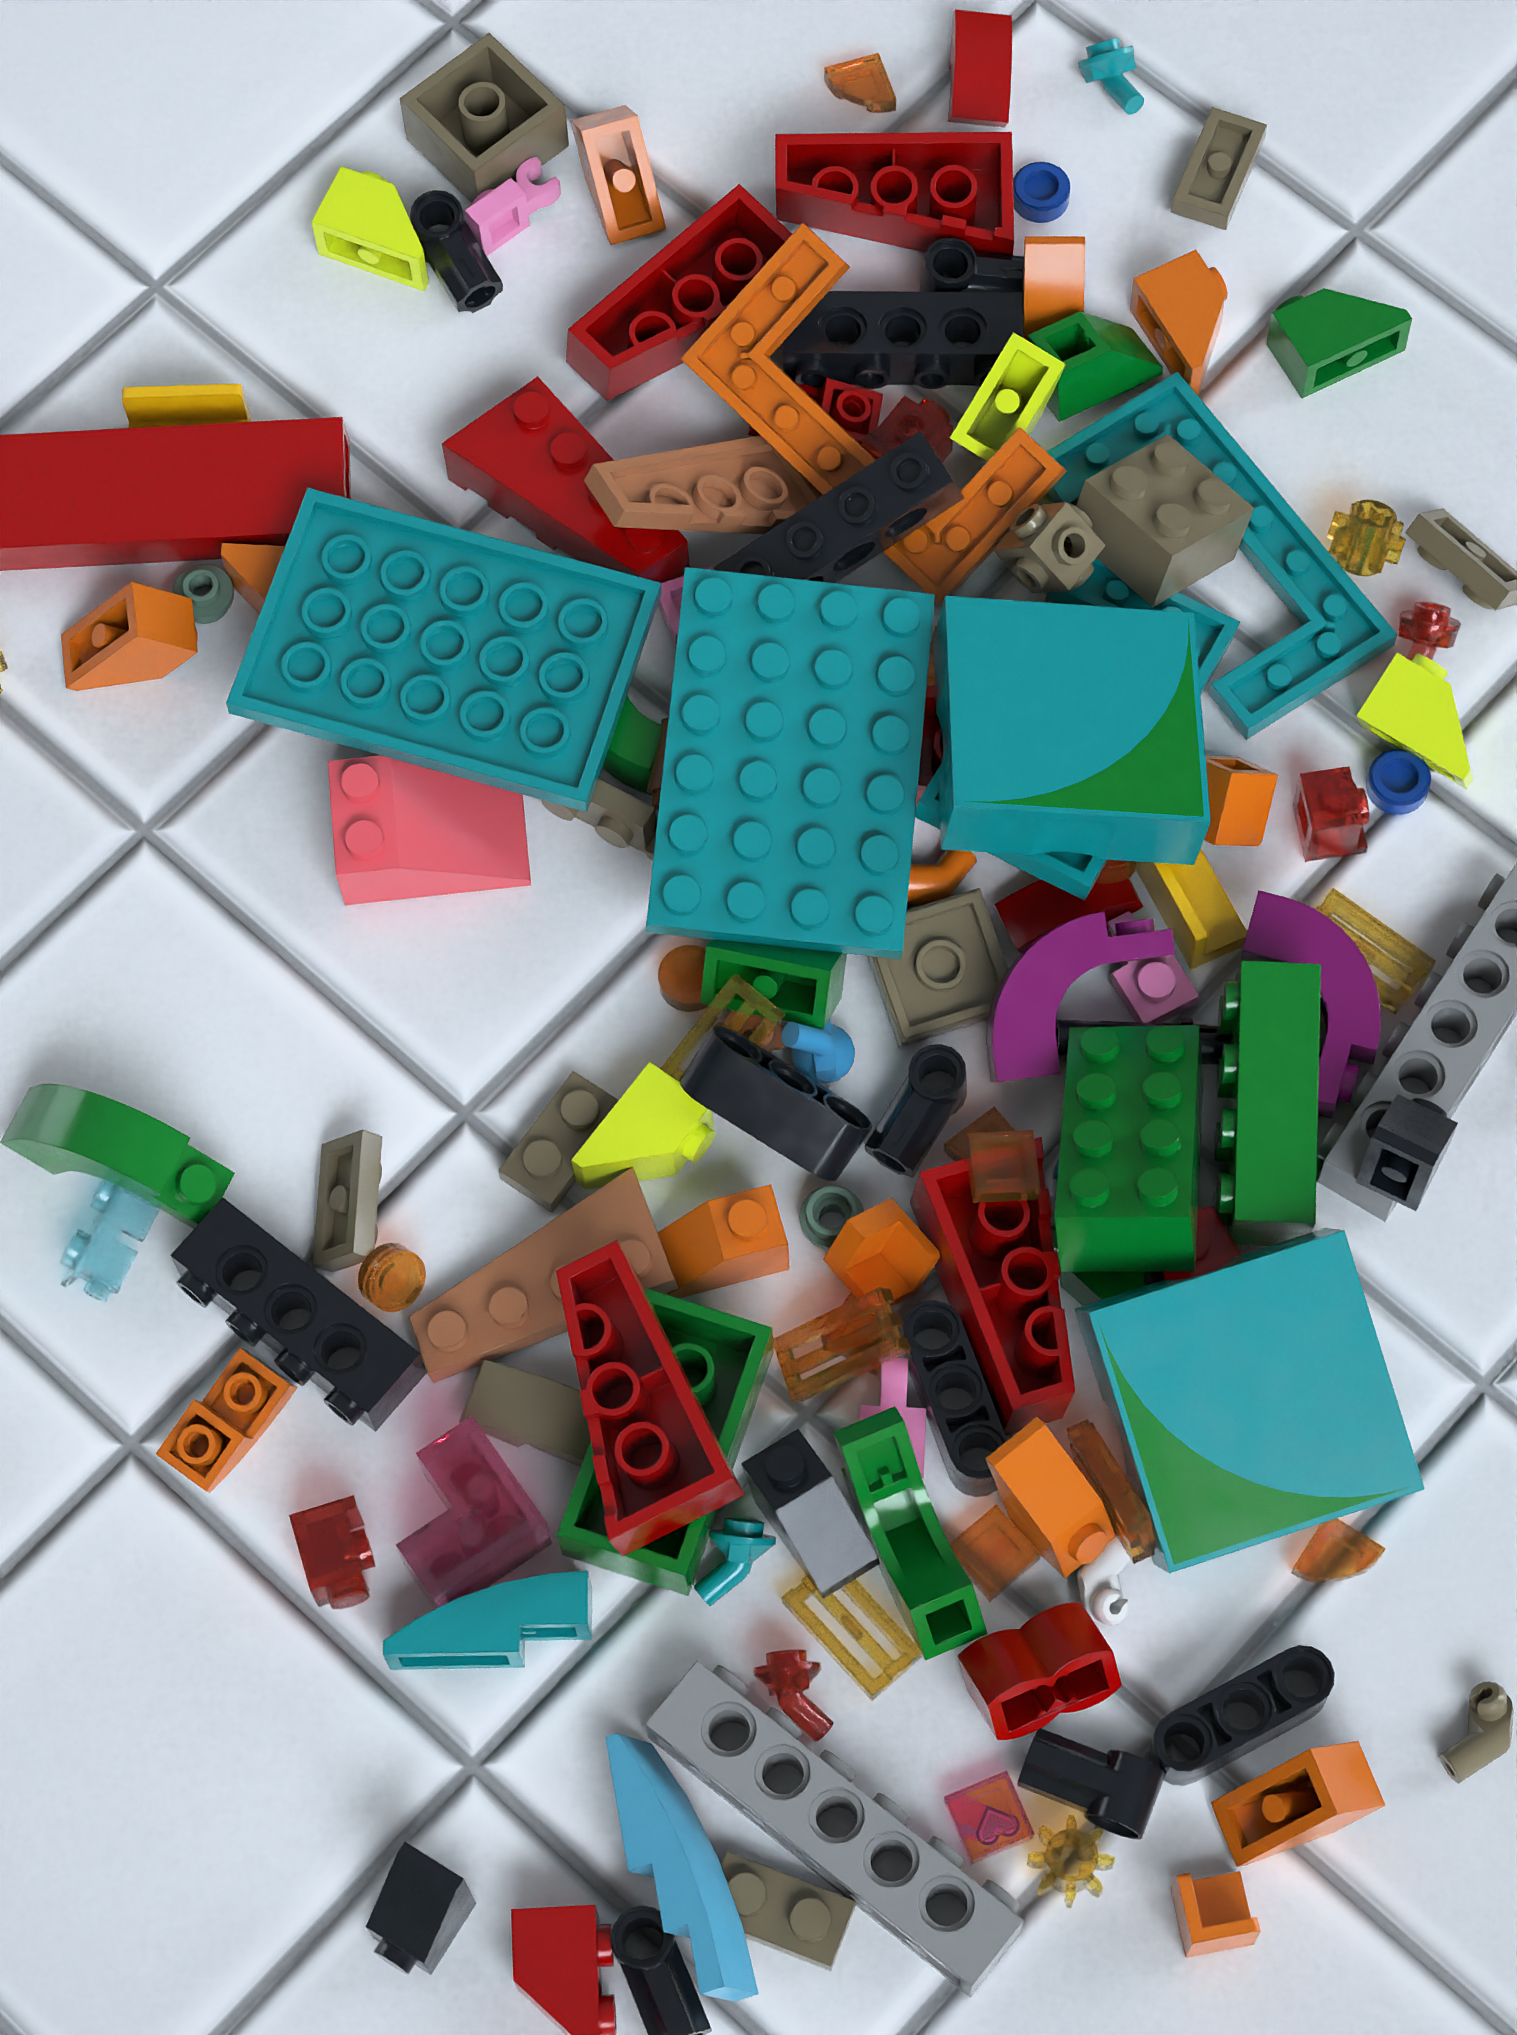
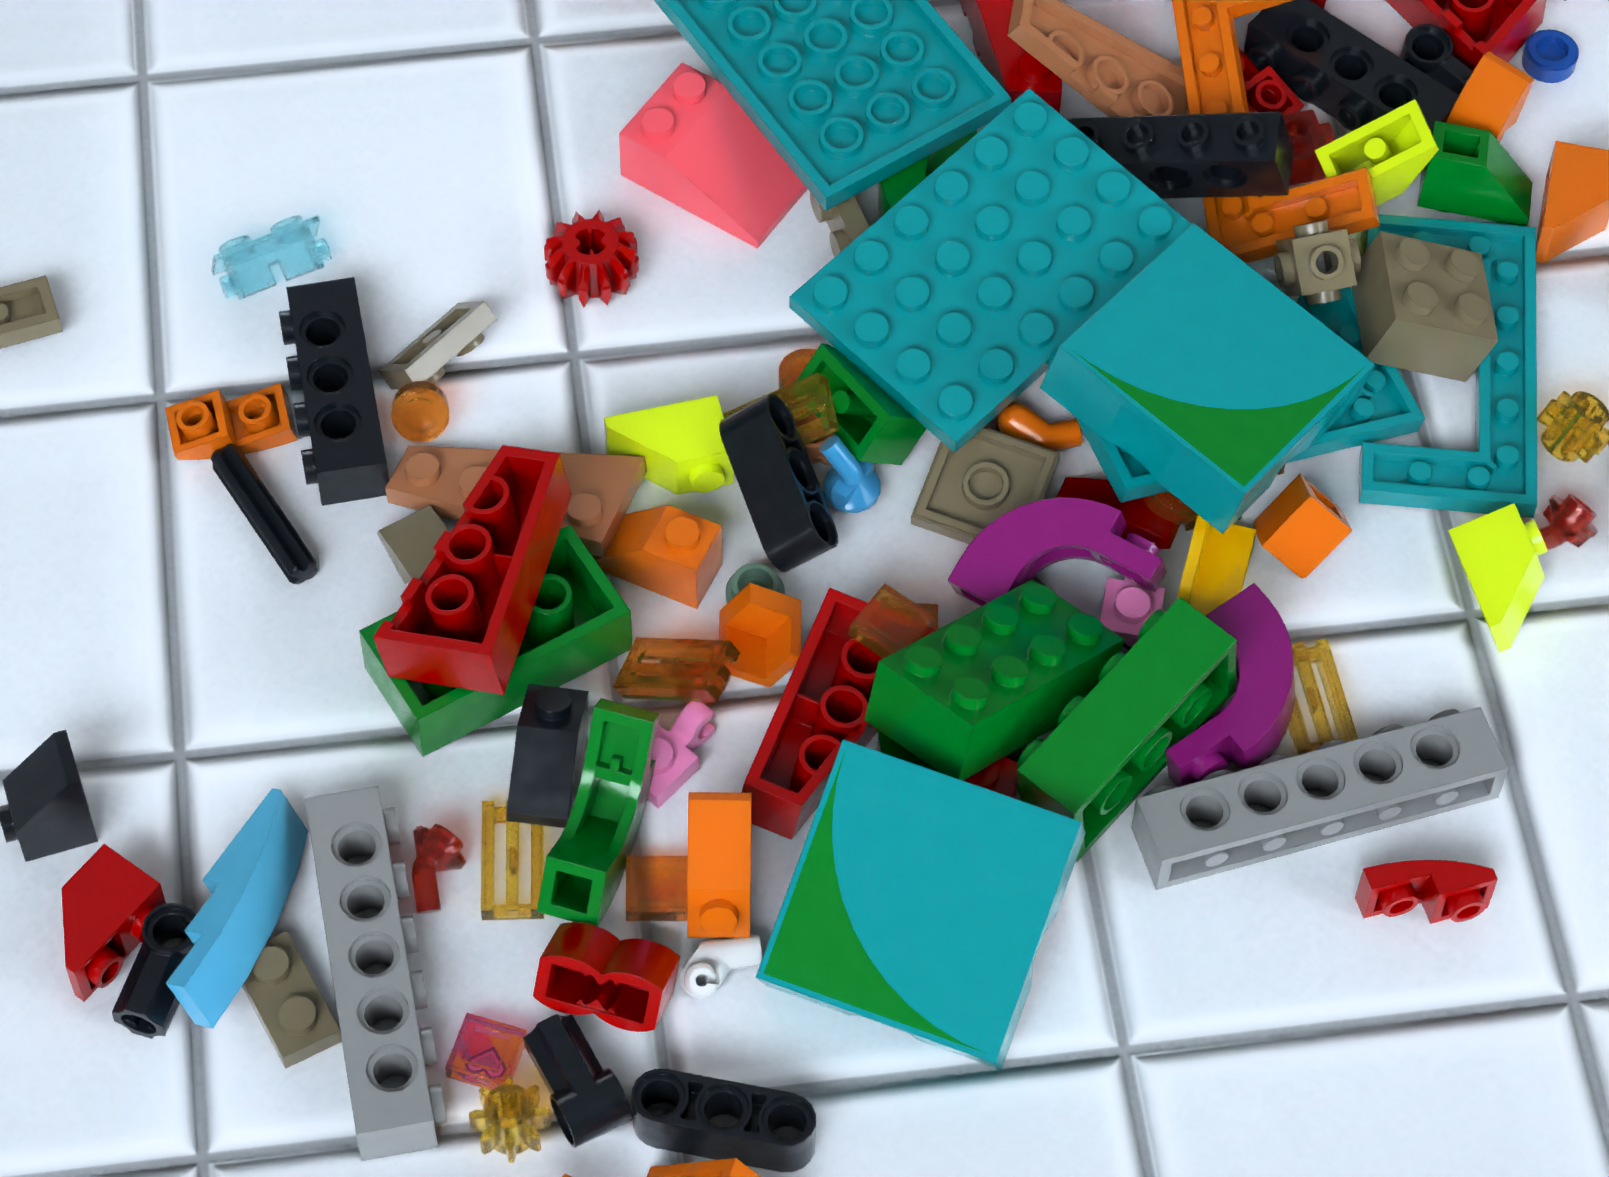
camera: 35 degrees right, 10 degrees down
(101, 1137) = (319, 199): green arch -> none
(334, 1553) = (216, 548): clear red brick -> none
(337, 1481) = (264, 514): none -> black axle
(402, 988) = (591, 258): none -> red gear
(486, 1524) = (316, 602): clear pink brick -> none
(494, 1623) = (276, 672): teal slope -> none
(542, 1159) = (584, 413): dark tan plate -> none
(741, 1544) = (485, 747): teal plate -> none
(917, 1113) = (867, 567): black piece -> none
(950, 1368) = (725, 740): black beam -> none
(1124, 1508) = (769, 896): clear orange tile -> none
(1330, 814) = (1370, 587): clear red brick -> none
(1337, 1554) = (900, 1073): clear orange tile -> none
(1398, 782) = (1448, 608): blue tile -> none
(1406, 1150) = (1193, 820): black slope -> none

